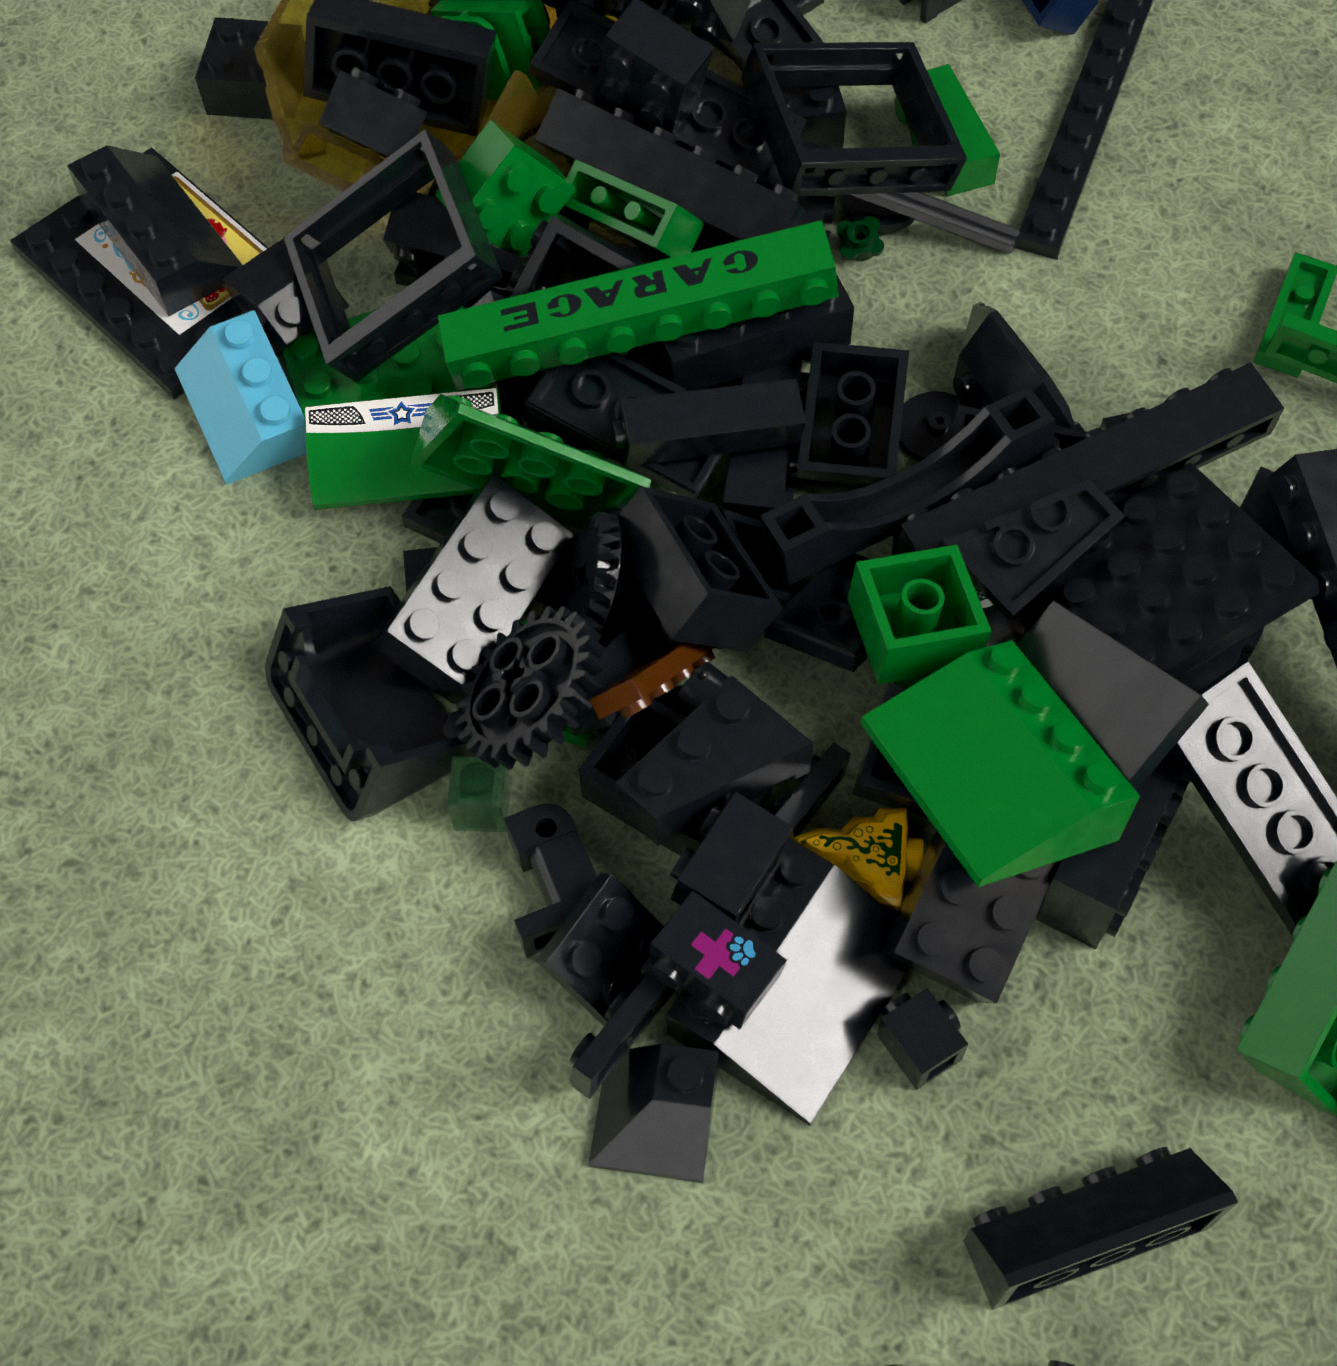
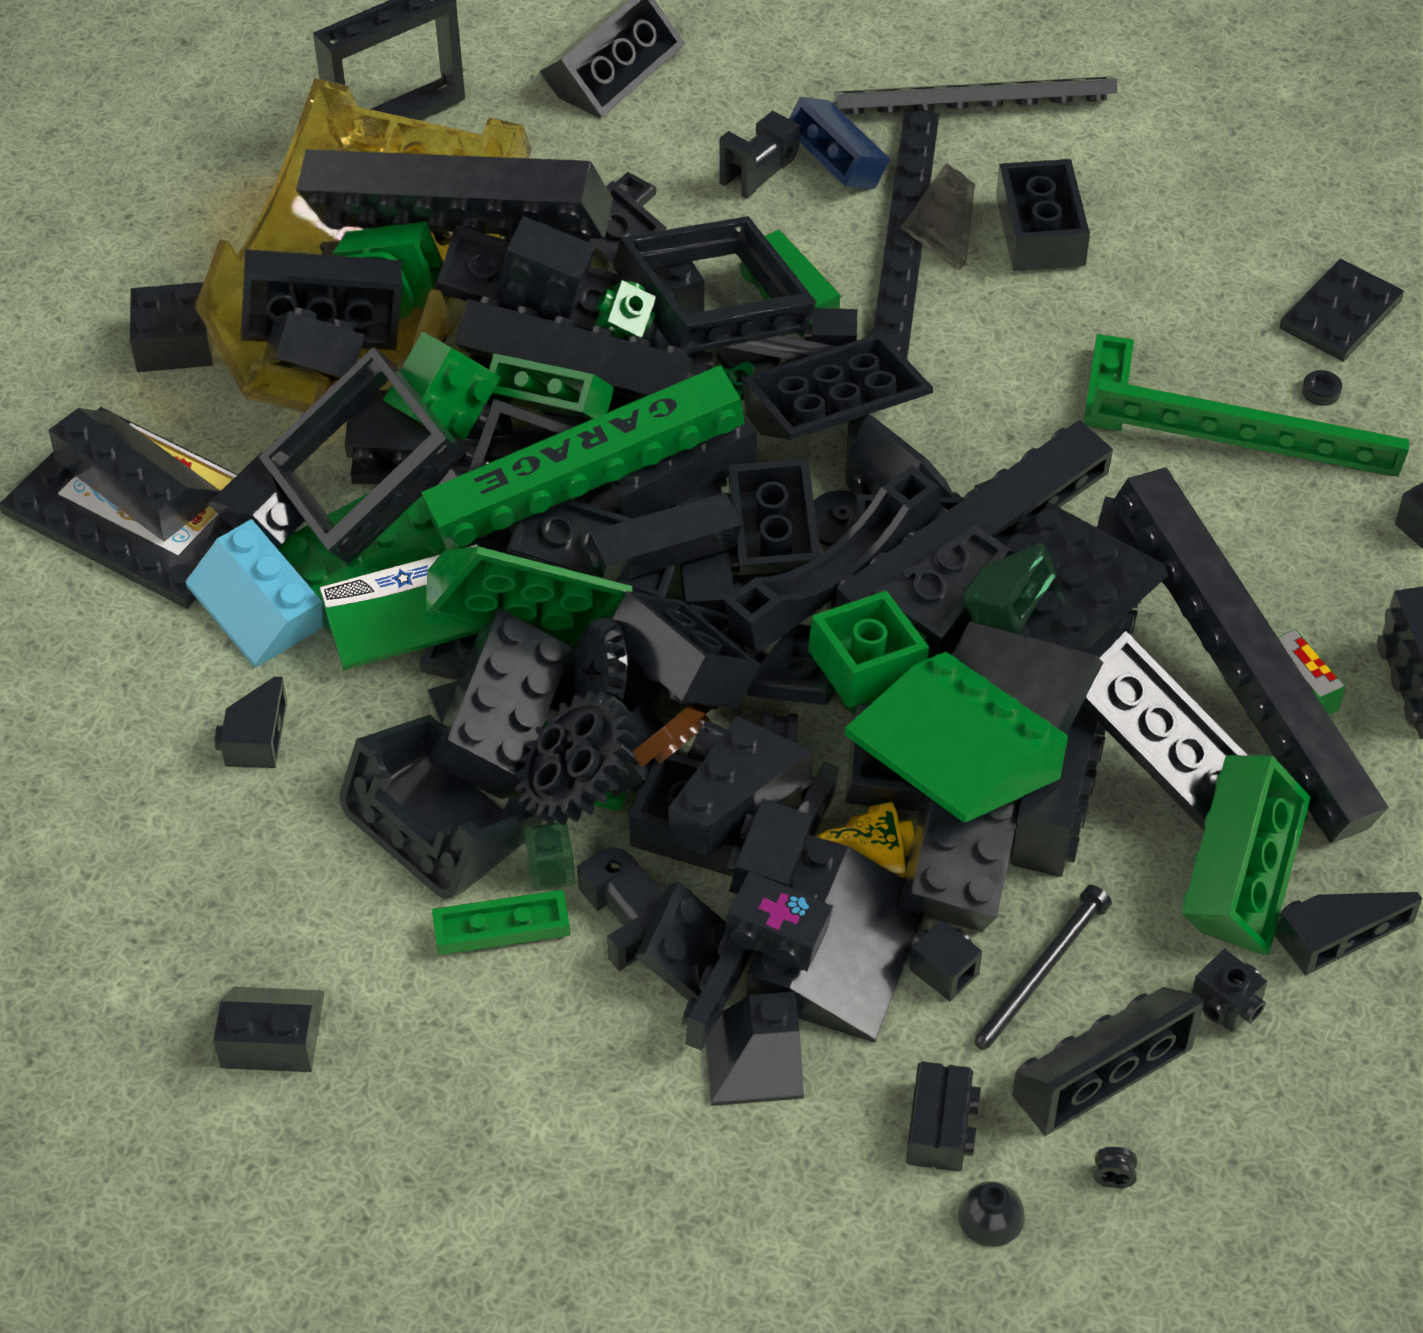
camera: 15 degrees left, 10 degrees down
(98, 943) = (268, 1029): none -> black slope
(197, 559) = (254, 727): none -> black slope
(402, 866) = (501, 922): none -> green plate
(738, 132) = (625, 310): none -> brick
(794, 689) = (782, 726): none -> black wheel
(863, 1259) = (940, 1116): none -> black brick
(962, 267) = (831, 388): none -> black slope
(983, 192) = (832, 326): none -> black brick
(1112, 572) = (1010, 589): none -> clear green slope
(1127, 997) = (1093, 901): none -> black bar
(1145, 79) = (944, 216): none -> clear smoke wing
(1262, 95) = (1042, 214): none -> black brick
(1276, 1170) = (1230, 991): none -> black brick

